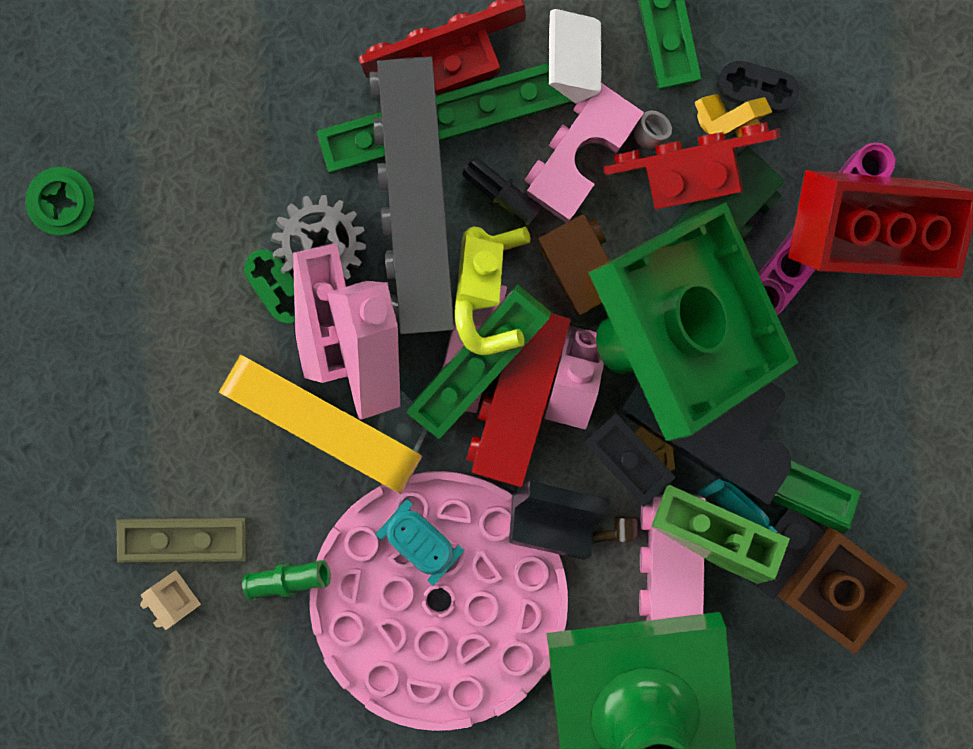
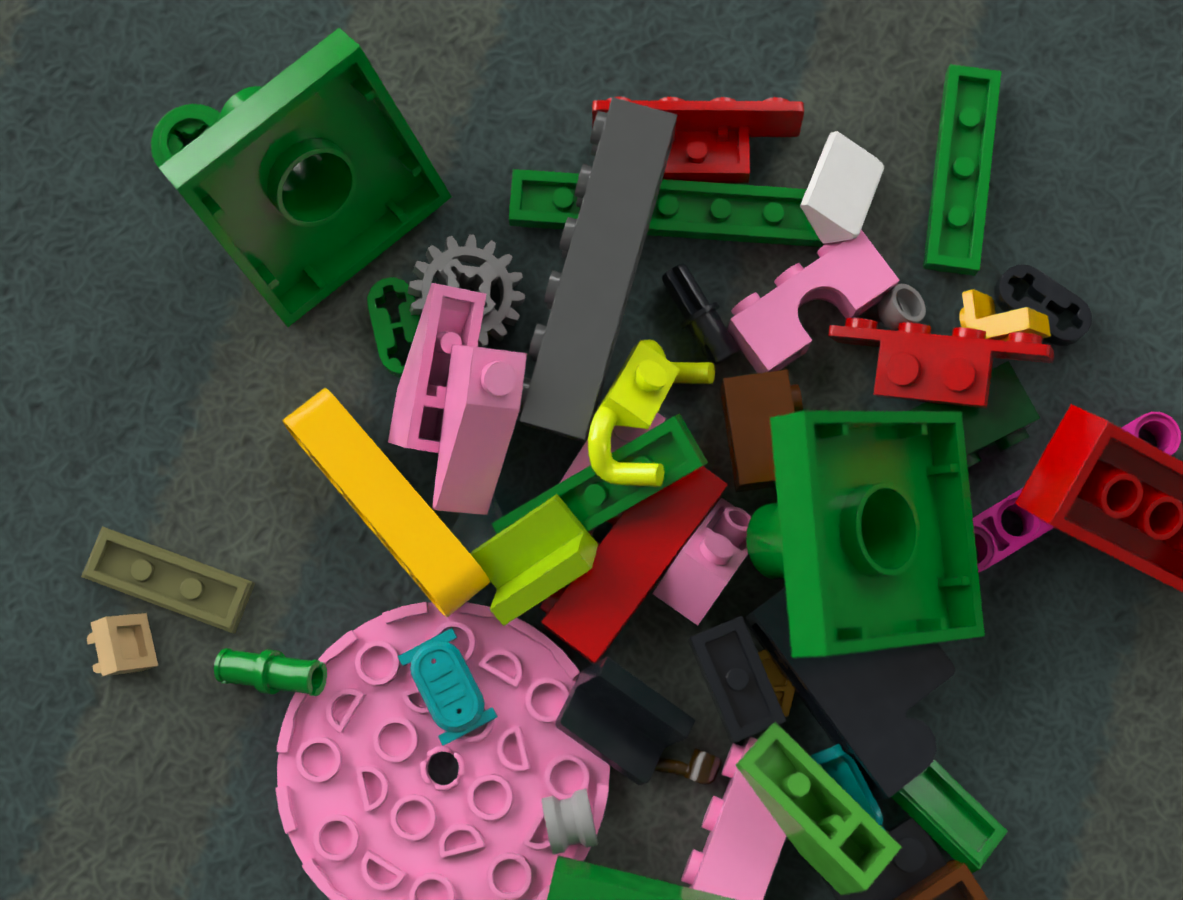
camera: 25 degrees right, 10 degrees down
(163, 204) = (308, 176): none -> green piece
(450, 428) = (535, 558): none -> lime panel
(545, 606) = (569, 821): none -> light grey wheel

